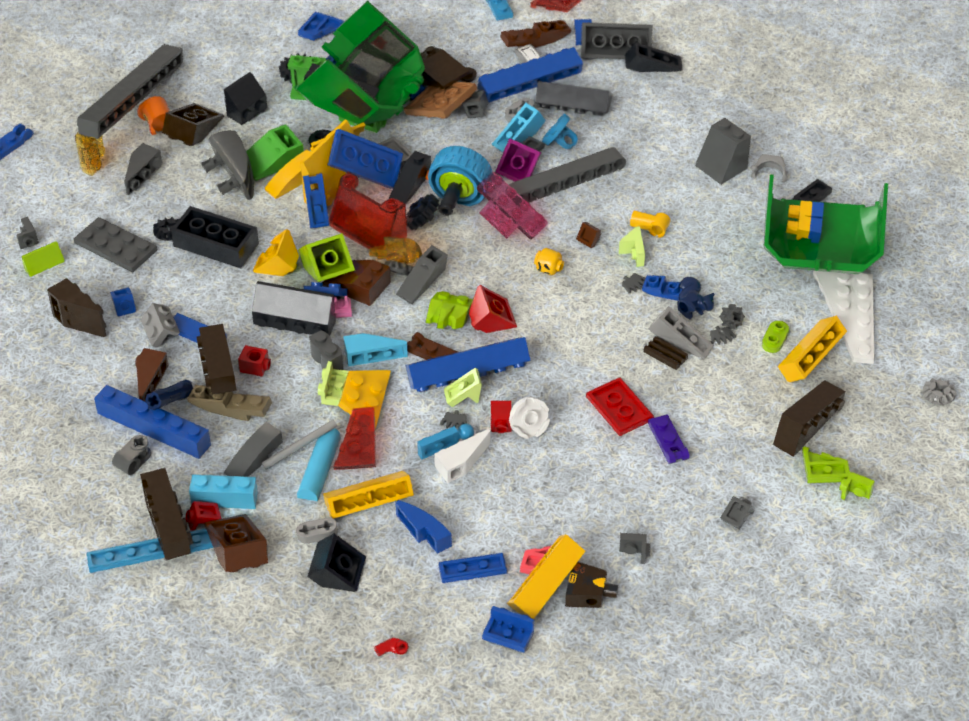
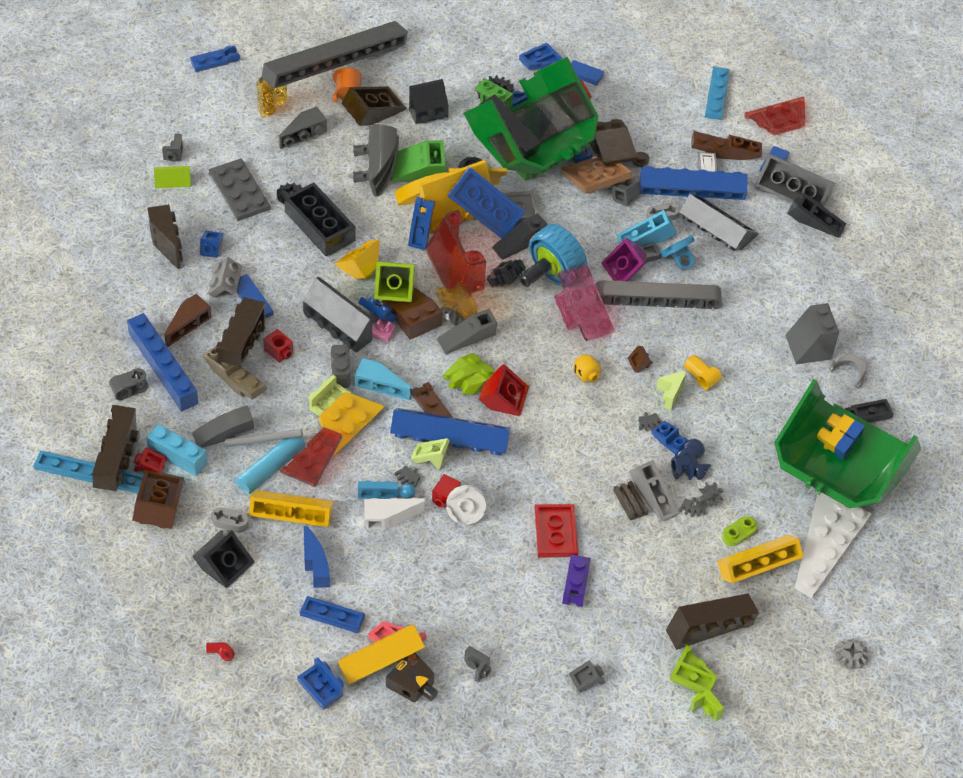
camera: 25 degrees right, 5 degrees up
(170, 394) = (174, 345): dark blue axle -> none

